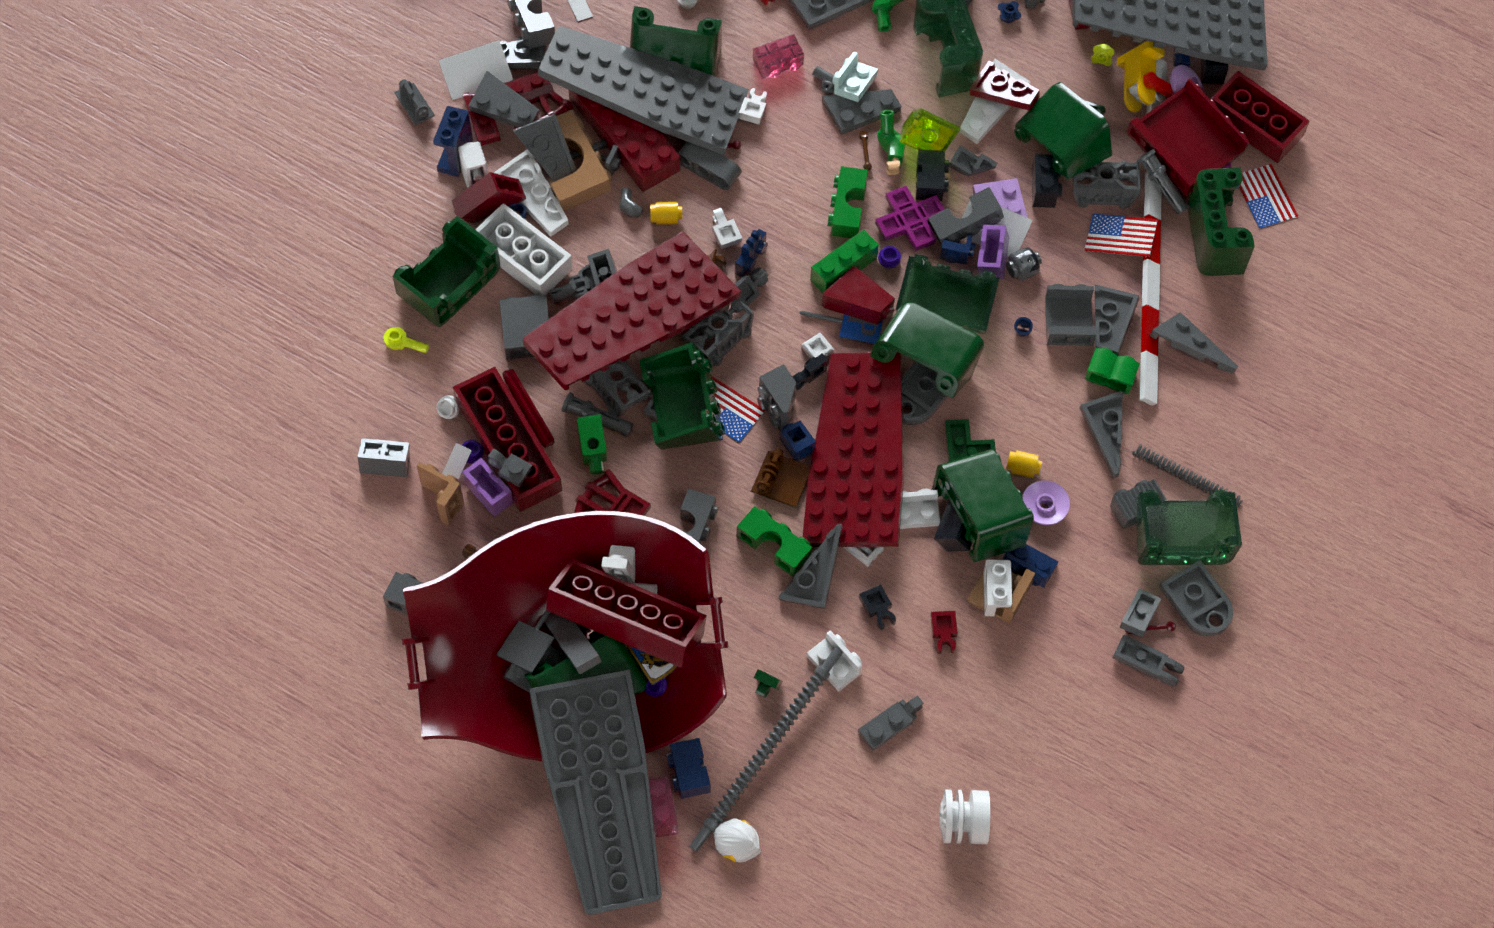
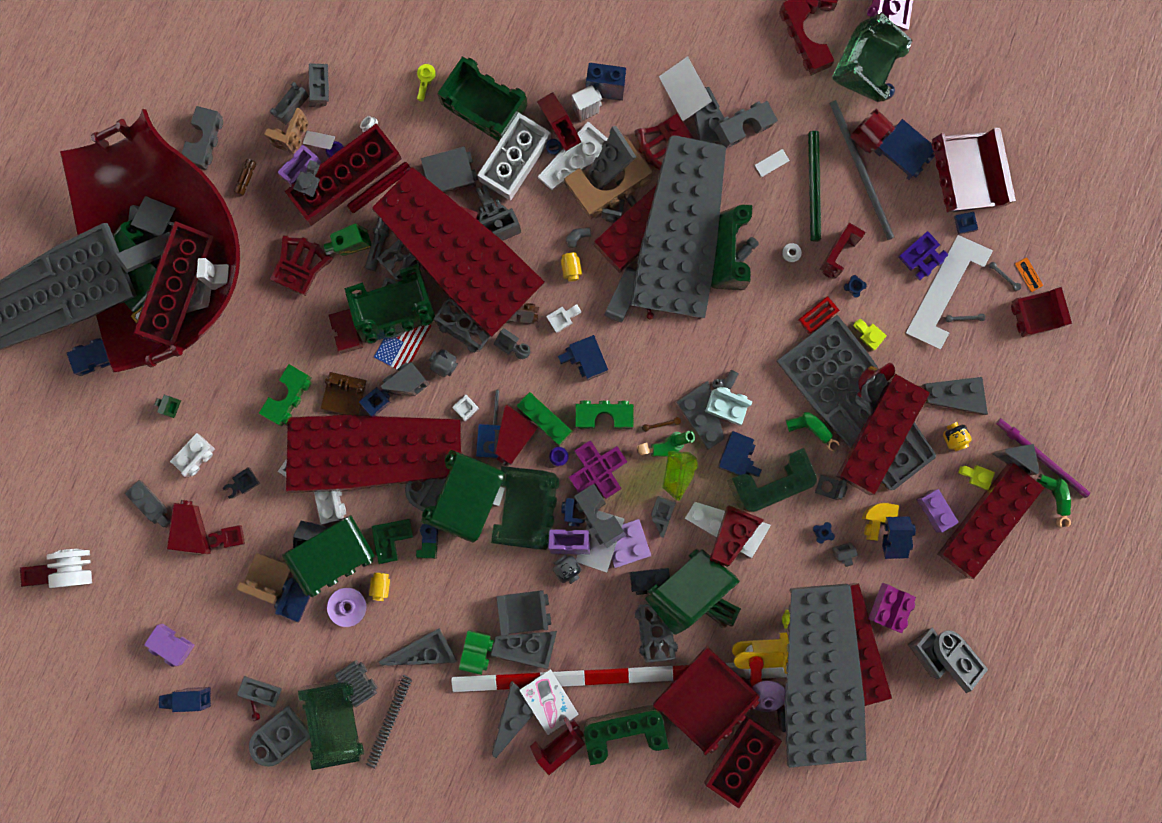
camera: 85 degrees right, 20 degrees up
(399, 495) = (286, 107): none -> dark grey hinge
(413, 102) = (648, 45): dark grey hinge -> none
(484, 127) = (642, 102): dark red plate -> none
(502, 103) = (653, 114): dark grey wing -> none
(662, 807) = (57, 341): clear pink brick -> none
(699, 510) = (304, 333): dark grey arch -> none
(704, 462) = (348, 337): none -> dark red brick
(710, 824) = (62, 385): dark grey hose -> none
(737, 840) = (40, 400): white hair -> none
(749, 252) = (536, 339): dark blue hinge -> none
(753, 107) = (685, 324): white plate -> none
(760, 360) = (443, 363): none -> dark grey head
(777, 208) = (588, 355): none -> dark blue hinge
(778, 57) = (740, 338): clear pink brick -> none
(812, 369) = (444, 406): black plate -> none
(814, 580) = (255, 430): dark grey wing -> none
(912, 79) = (735, 456): none -> dark blue hinge
(929, 674) = (187, 529): none -> dark red slope
(931, 174) = (647, 482): black brick -> none
(967, 868) = (35, 575): none -> dark red tile
(975, 404) = (429, 542): none -> leg
(997, 585) = (259, 575): white bracket -> none
(1023, 322) = (502, 574): dark blue hinge -> none
(1078, 709) = (165, 644): none -> medium lavender brick
(1121, 235) = (607, 649): sticker -> none
(1145, 687) = (187, 699): none -> dark blue hinge
(1147, 660) = (222, 699): dark grey hinge -> none
(1157, 172) = (666, 676): dark grey pin -> none
(1177, 300) = (548, 701): none -> white sticker
(1230, 289) = (560, 748): none -> dark red panel
(1266, 196) = (670, 773): sticker -> none

